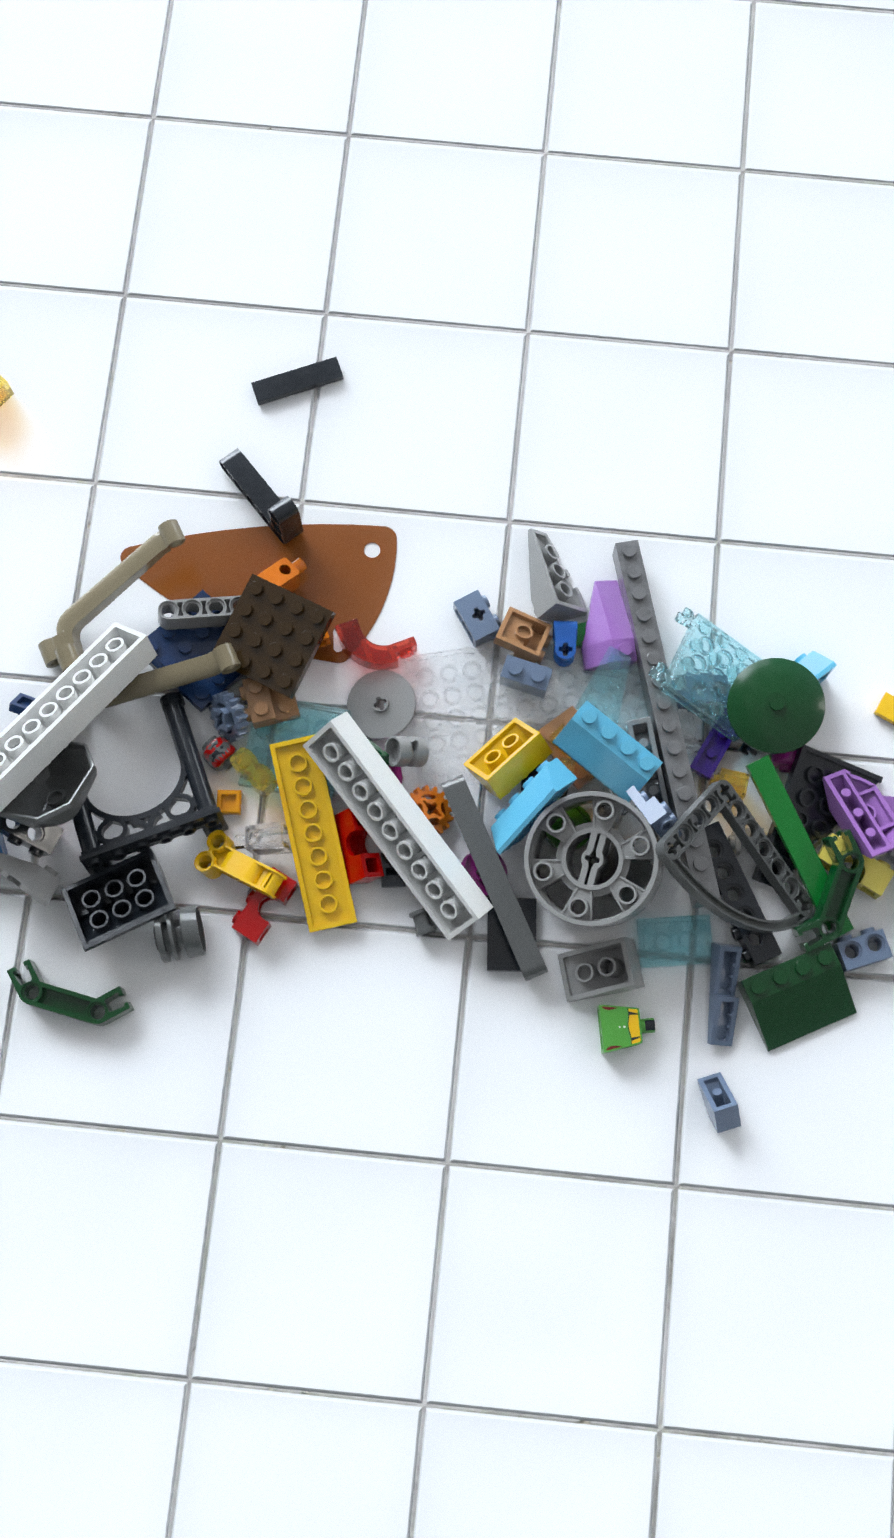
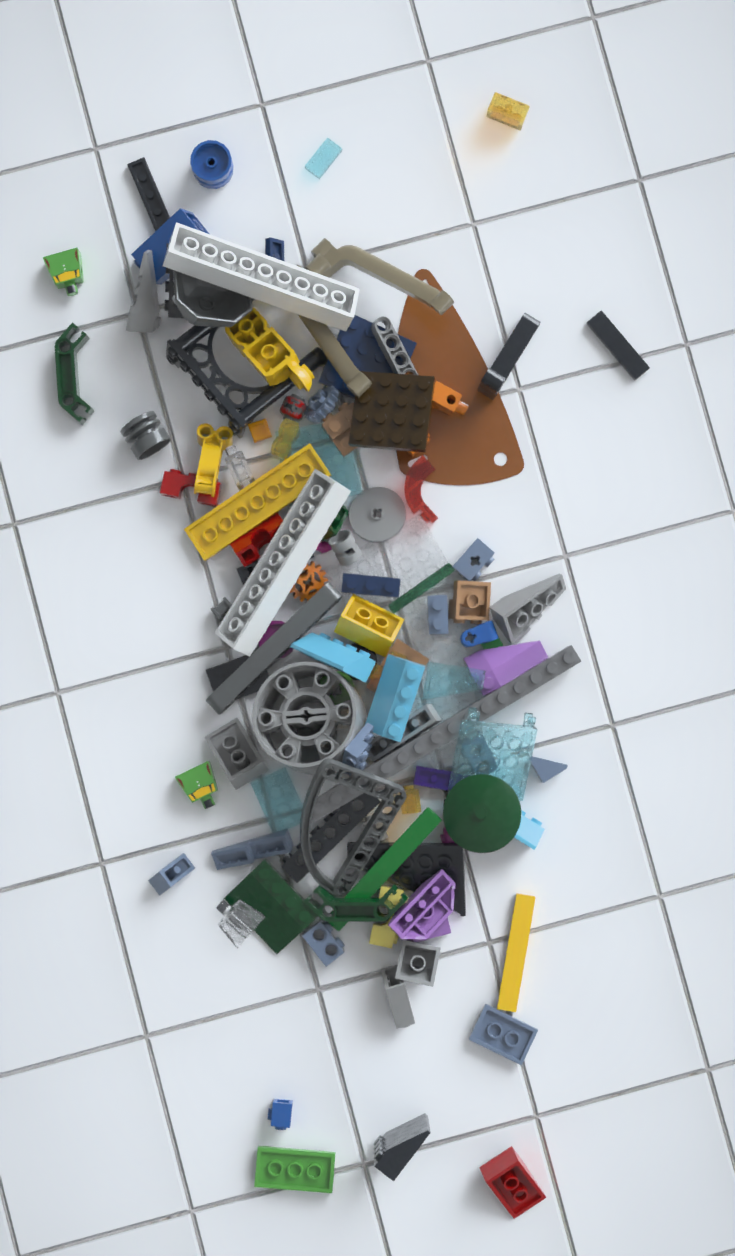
camera: 70 degrees right, 10 degrees up
(118, 899) = (152, 381): black slope -> none
(144, 750) = (268, 351): none -> yellow brick
(461, 740) = (371, 585): none -> dark blue plate
(486, 685) = (421, 588): none -> clear green axle
(745, 625) = (547, 769): none -> sand blue slope
(804, 1040) = (238, 921): none -> clear torso

